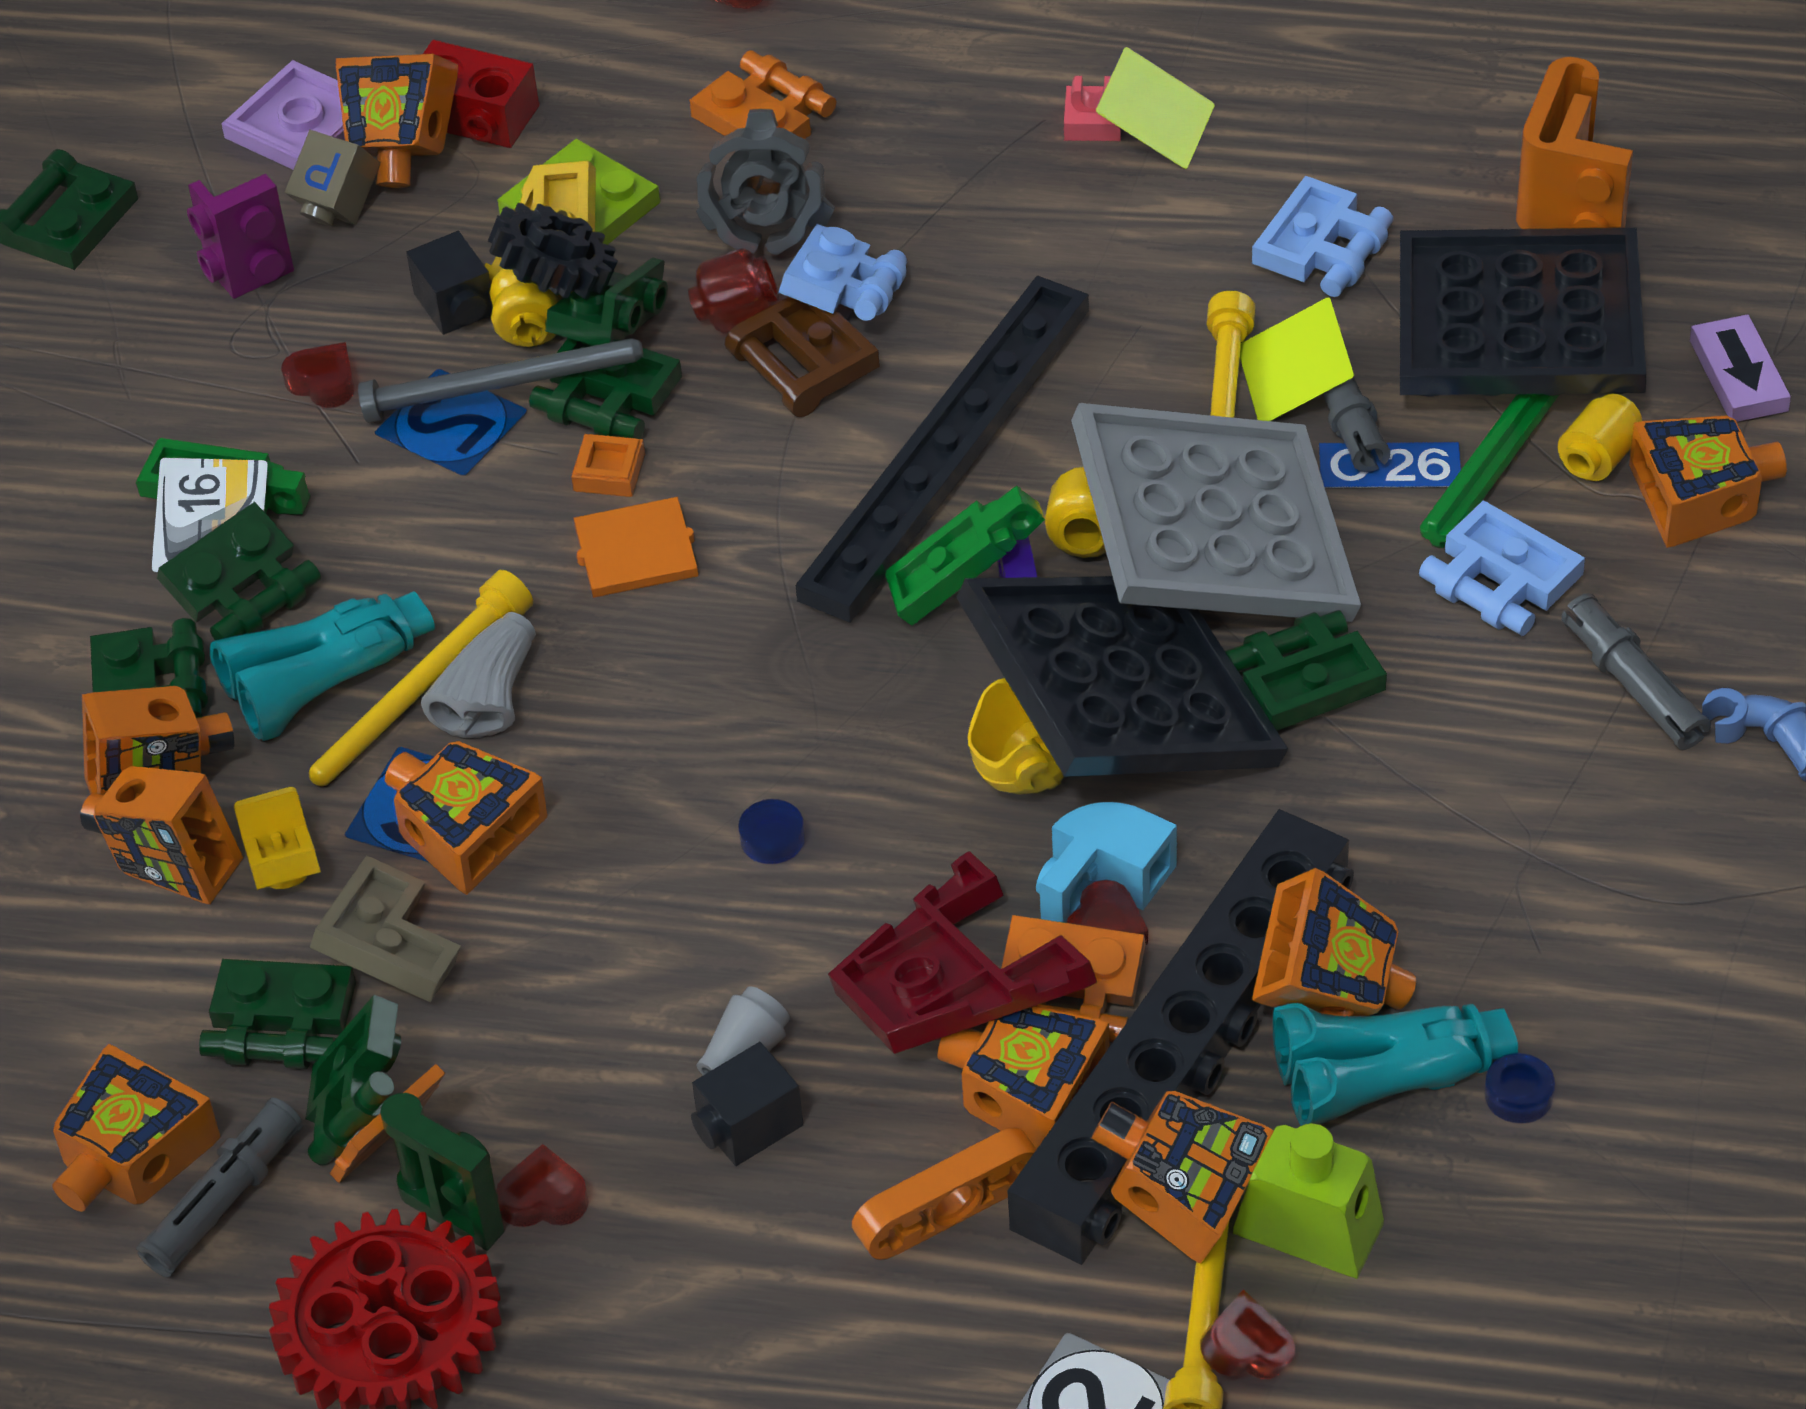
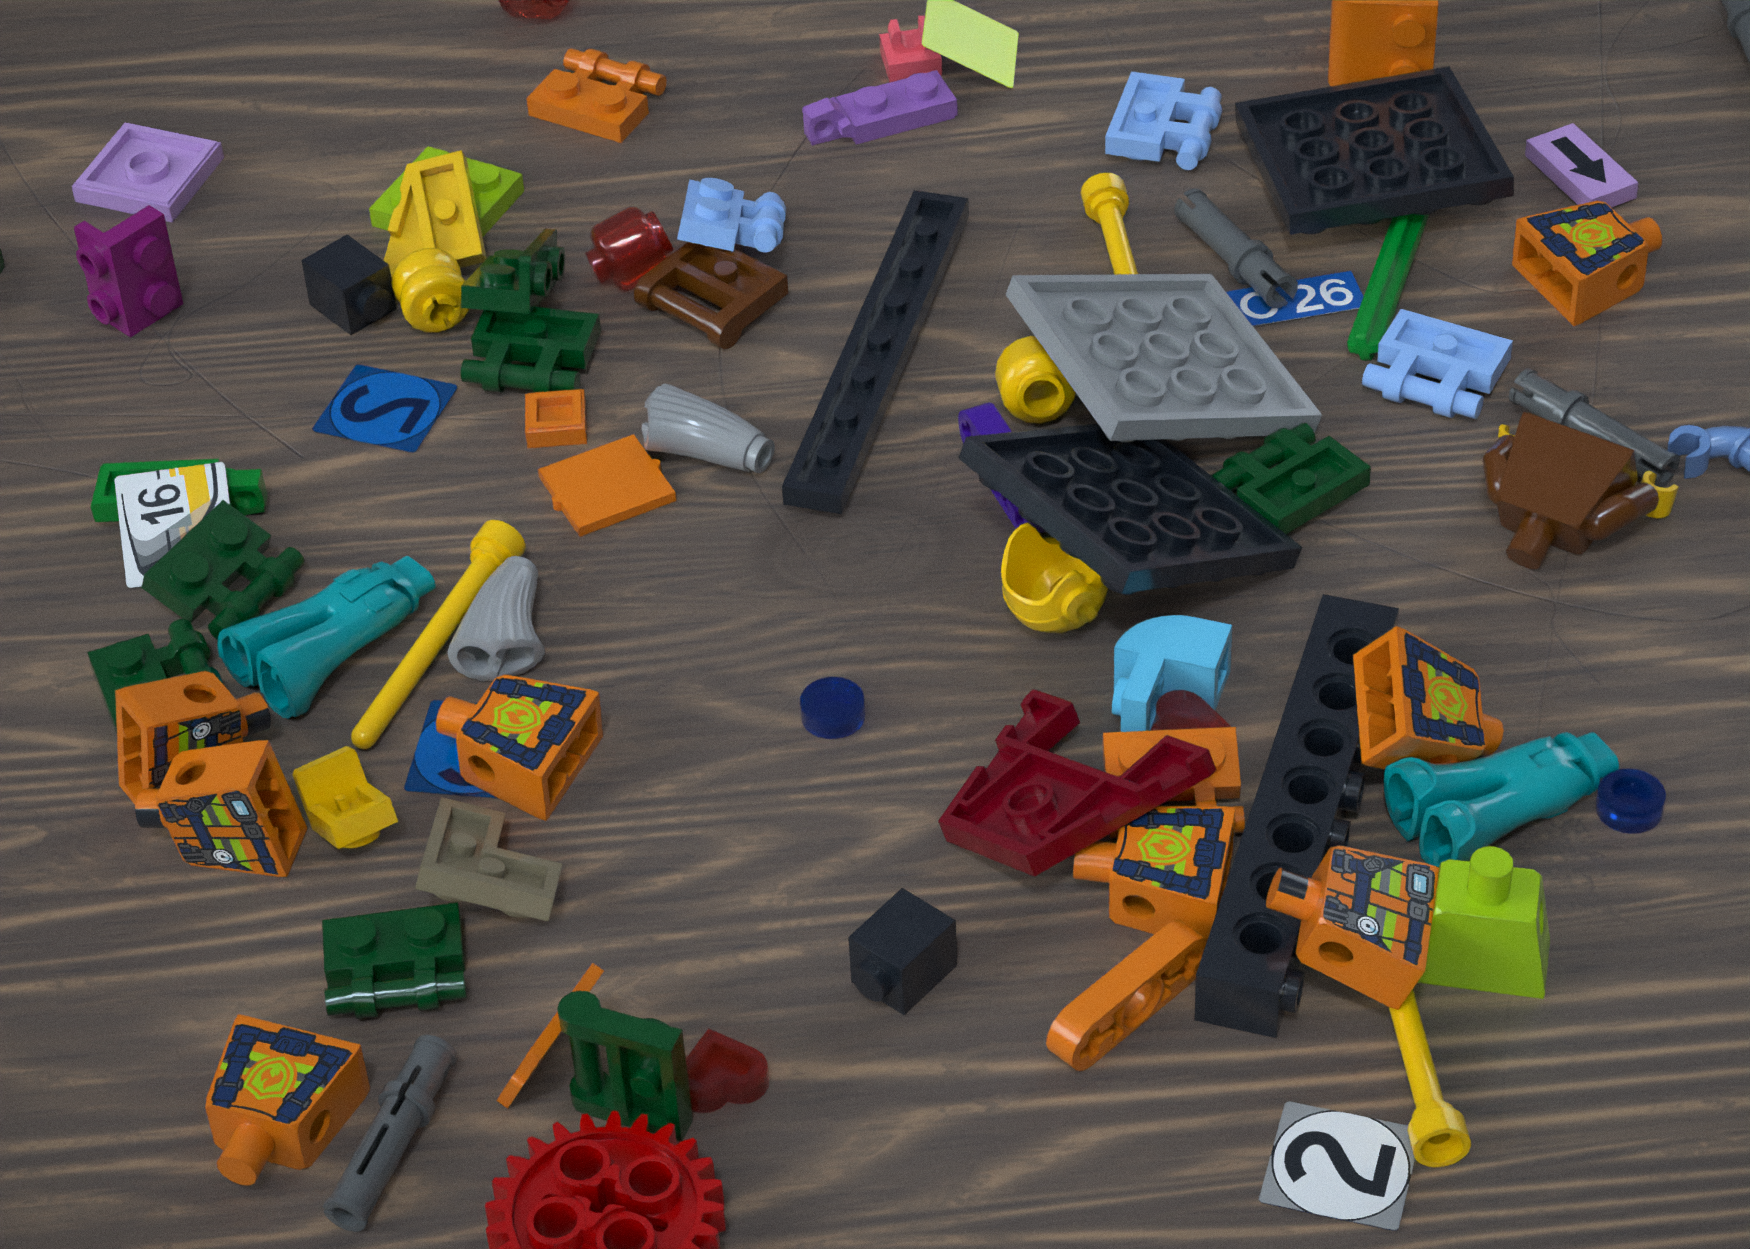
camera: 15 degrees left, 5 degrees down
(321, 374) = (242, 386): clear red tile -> none
(331, 179) = (203, 212): dark tan brick -> none
(351, 1079) = (502, 1001): dark green plate -> none
(377, 400) = (424, 356): dark grey bar -> none
(396, 109) = (249, 141): torso -> none
(491, 94) = (313, 123): red brick -> none
(552, 250) = (452, 231): black gear -> none
(738, 505) = (703, 430): none -> light grey piece
(745, 1022) = (872, 881): light grey cone -> none
(760, 153) = (624, 120): dark grey piece -> none
(960, 551) = (935, 429): green hinge -> none
(1041, 173) = (881, 110): none -> medium lavender hinge
(1247, 1340) = (1469, 1069): clear red tile -> none
(1295, 361) = (1181, 223): neon yellow sticker -> none
(1574, 738) = (1565, 488): none -> reddish brown torso
(1599, 437) = (1483, 242): yellow brick -> none

